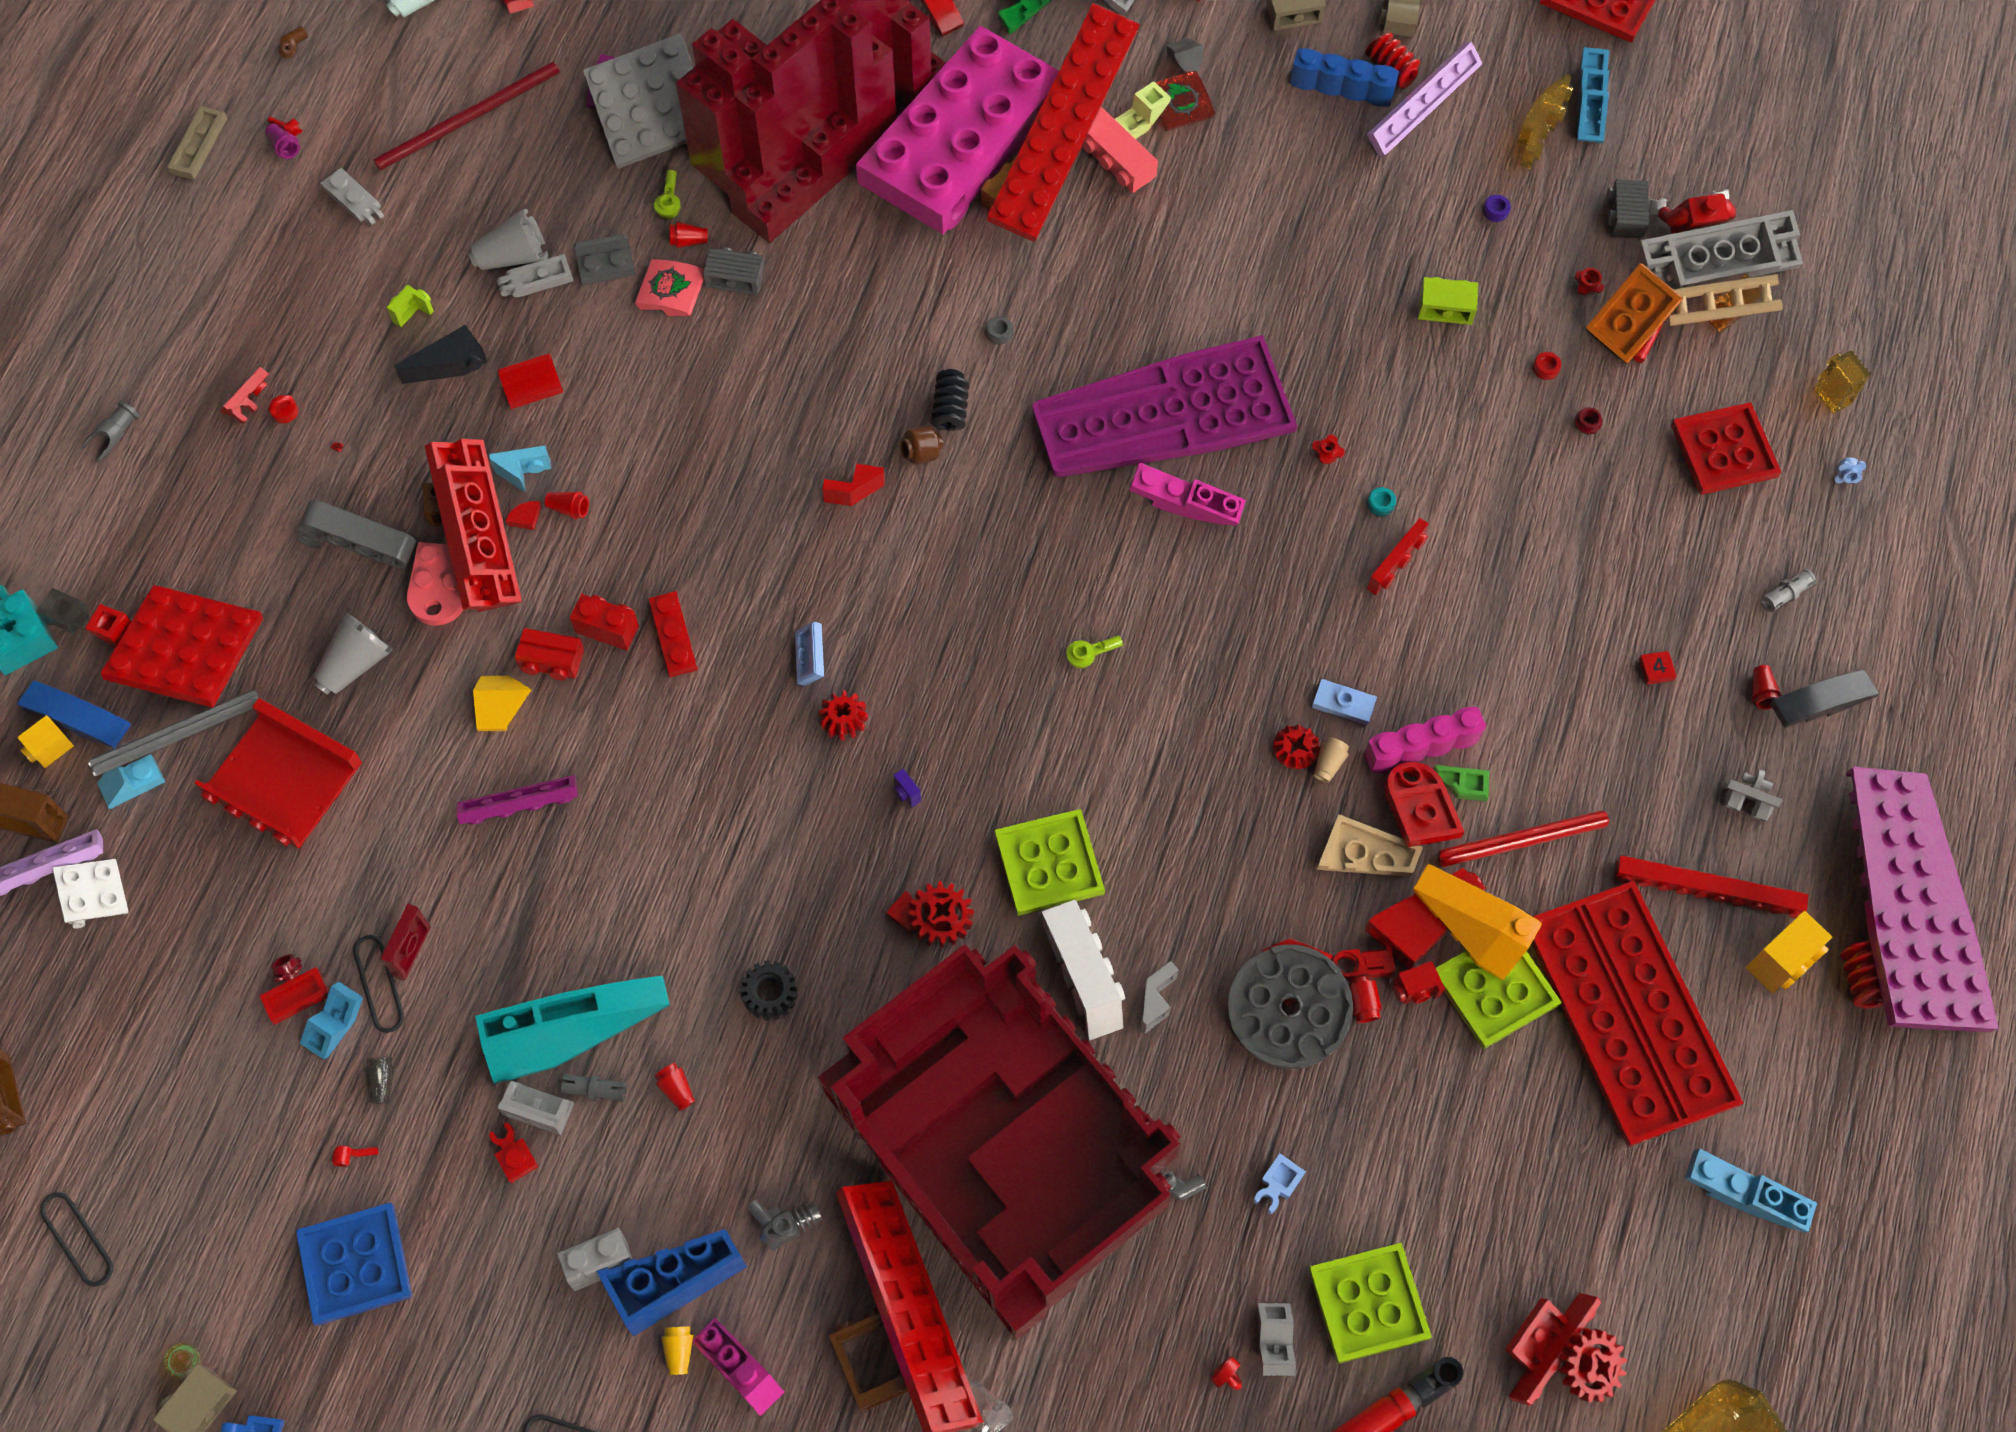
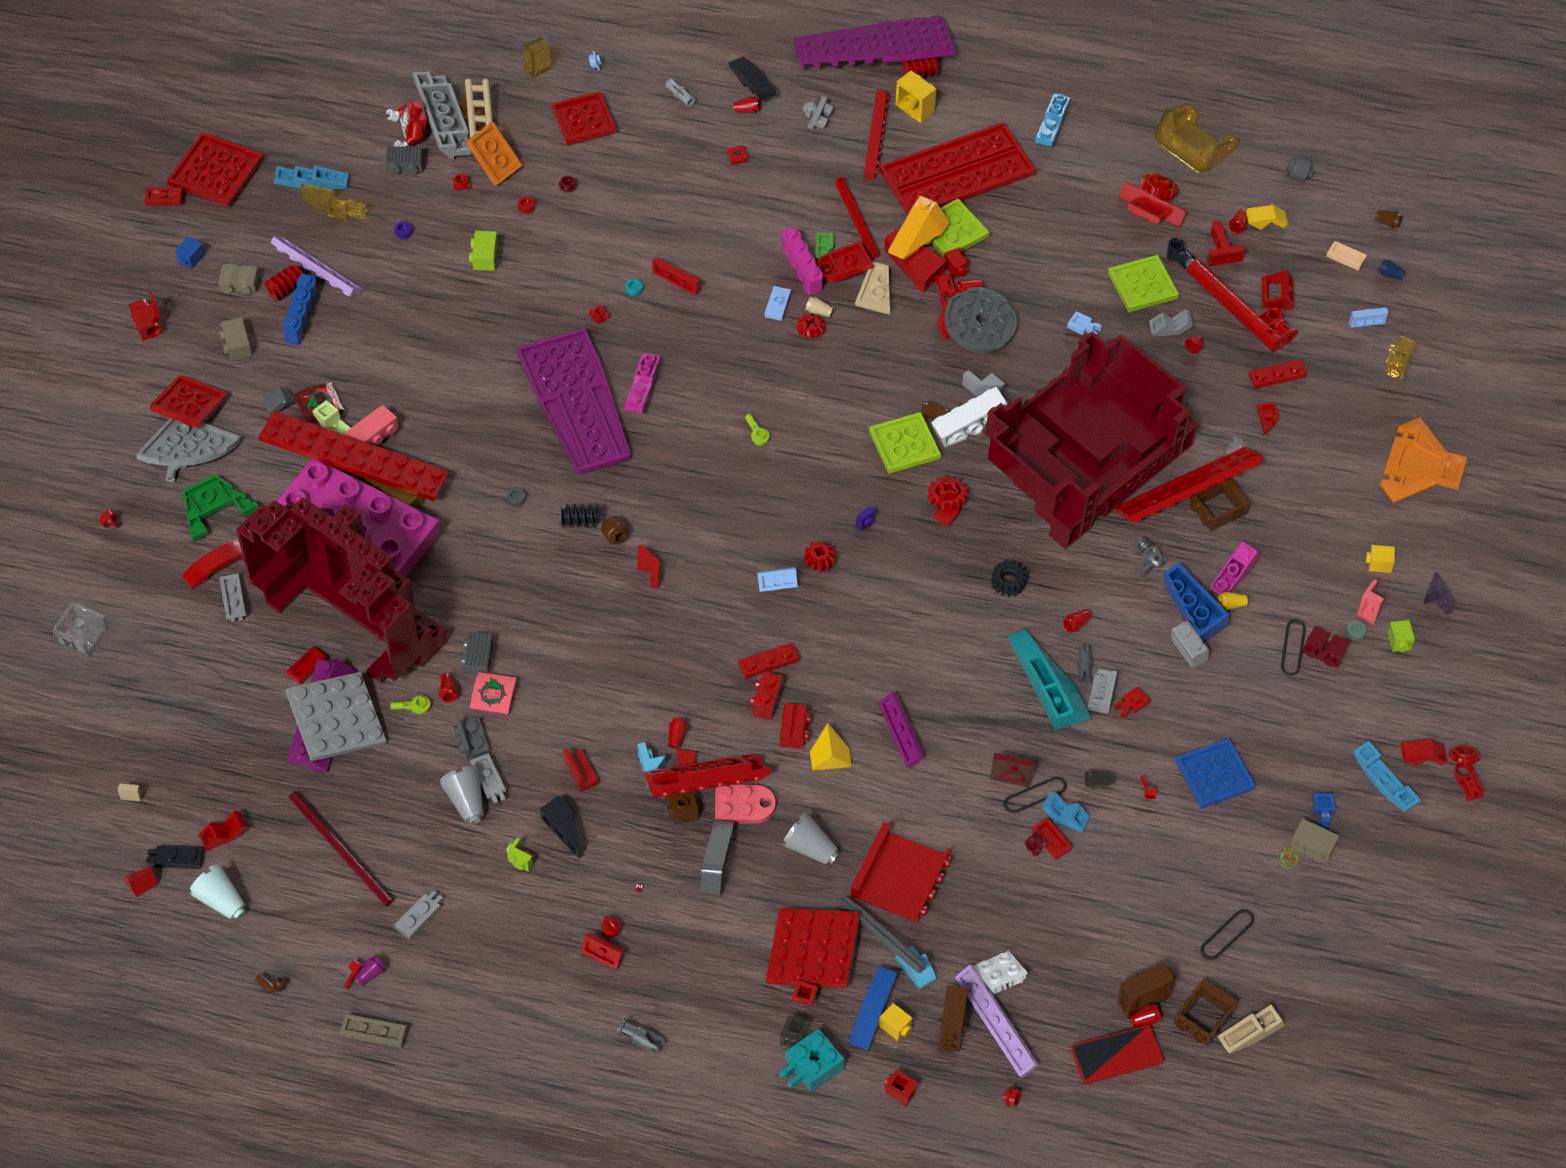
camera: 95 degrees left, 10 degrees down
(1110, 911) = (933, 410): none -> reddish brown cone

